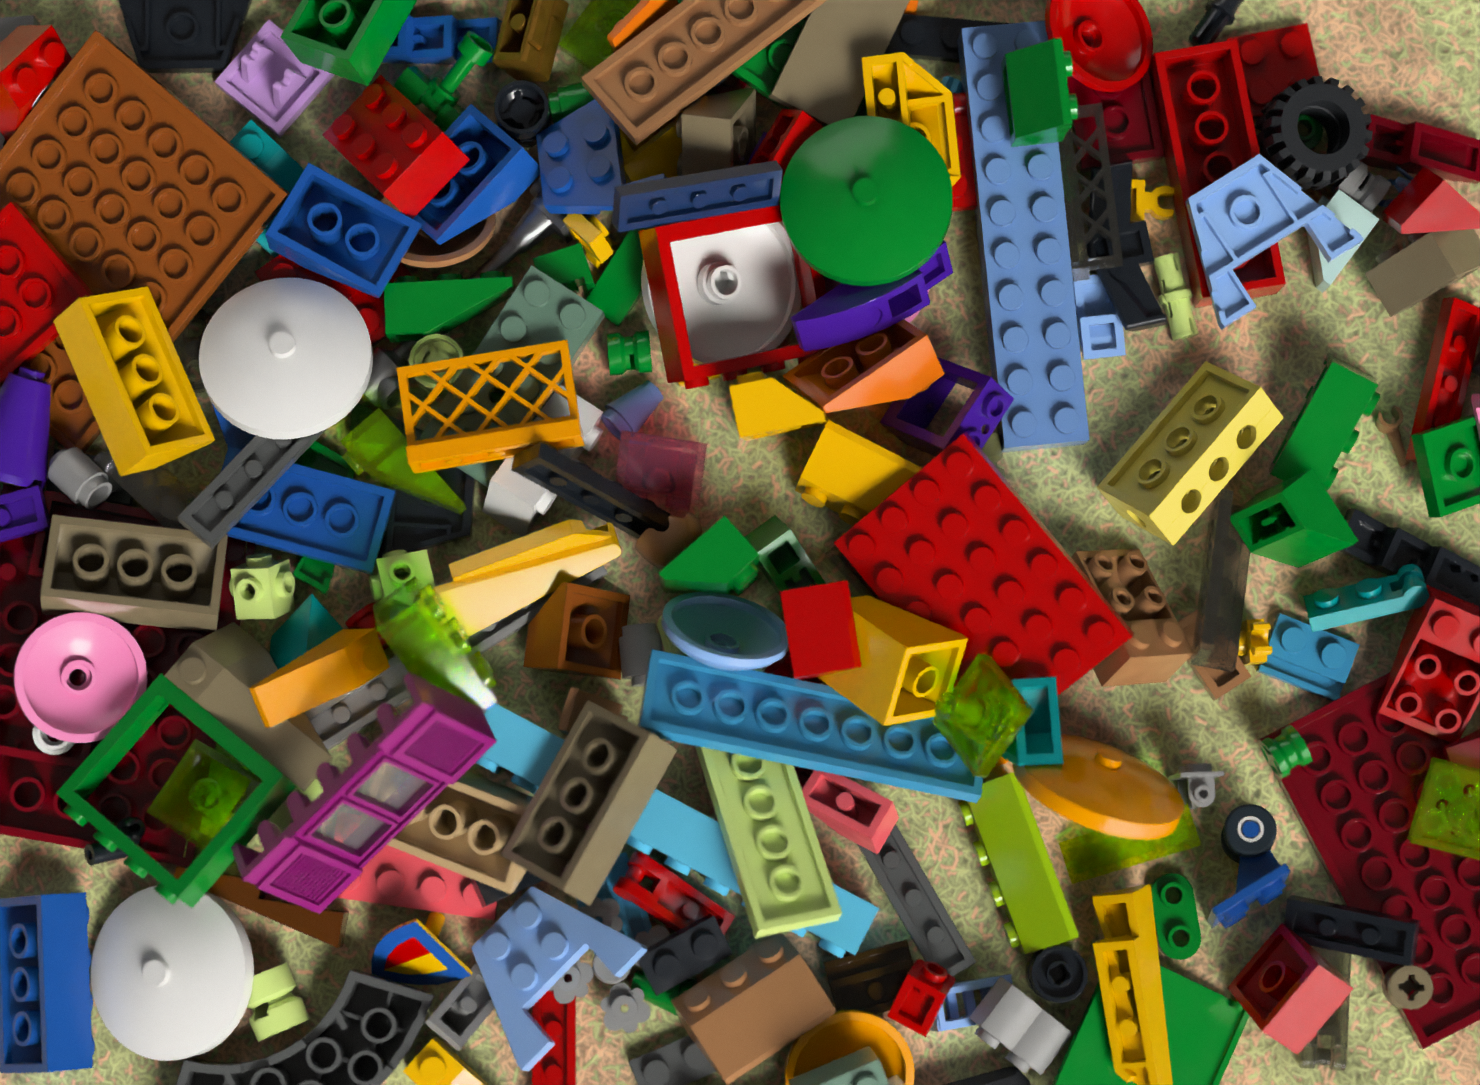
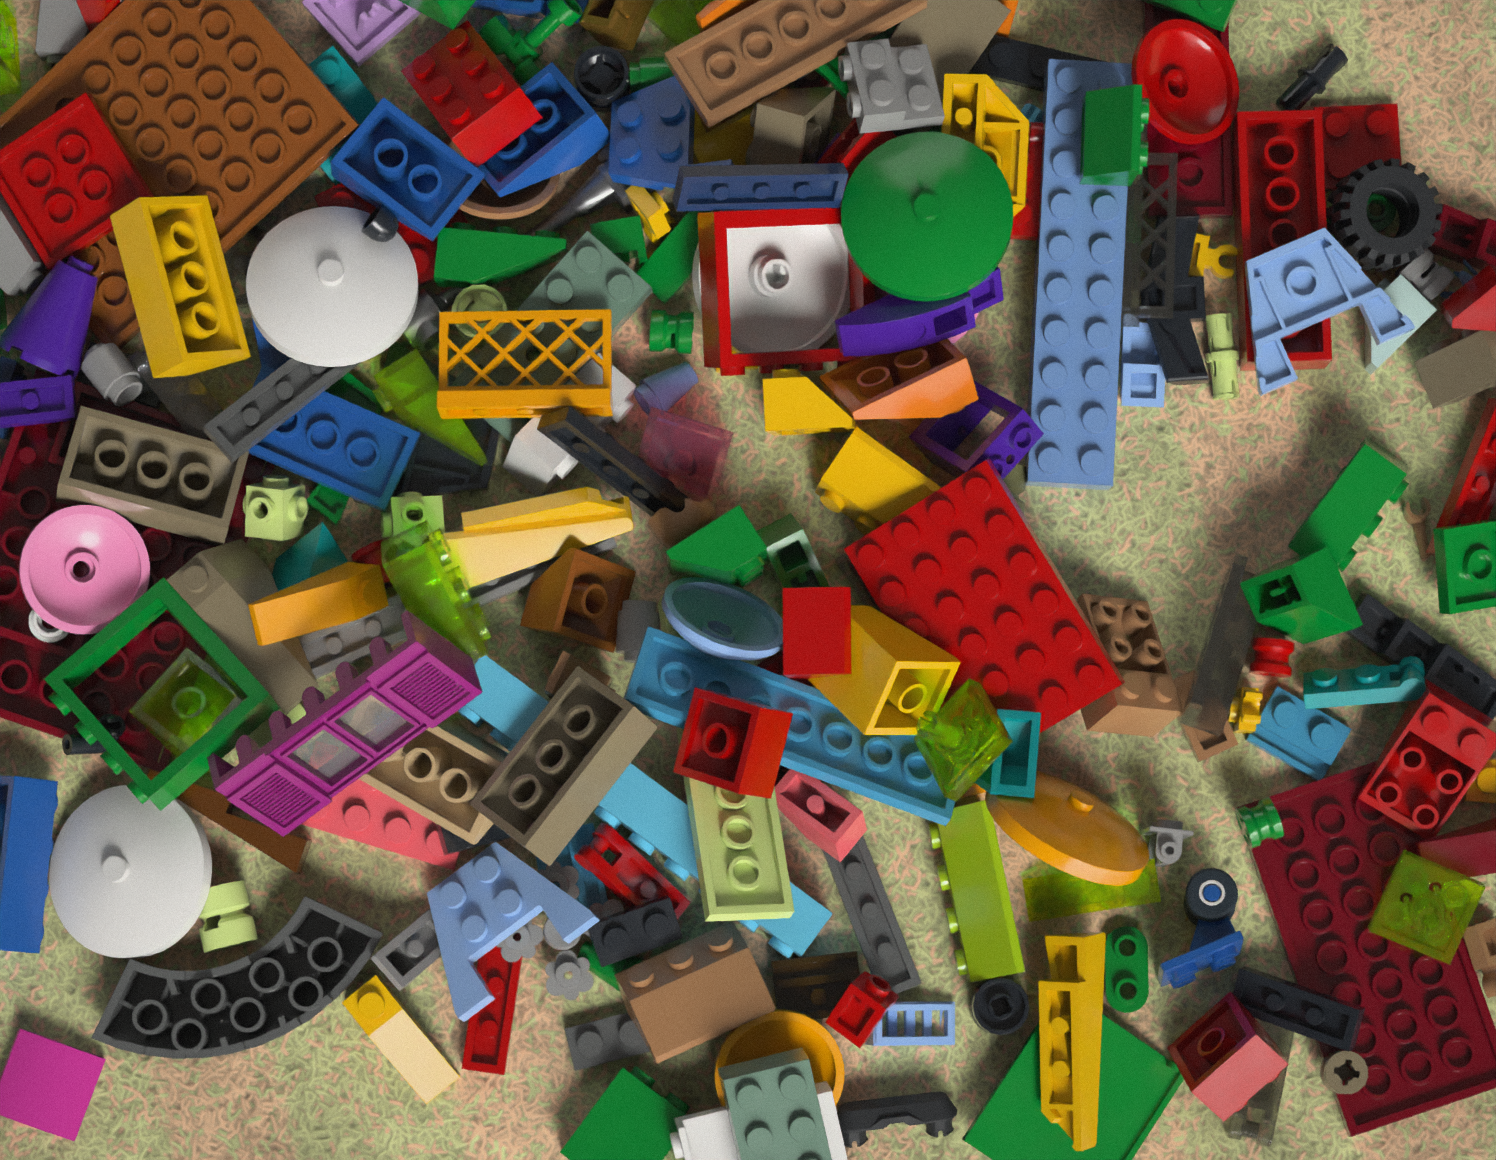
camera: 10 degrees right, 0 degrees up
(325, 289) = (381, 224): none -> black hinge
(416, 955) = (372, 893): shield -> none
(754, 754) = (732, 743): none -> red slope
(810, 78) = (890, 86): none -> light grey plate
(1020, 1026) = (955, 1053): light grey brick -> none
(1190, 452) = (1211, 513): light yellow brick -> none
(1270, 585) = (1271, 657): none -> red wheel

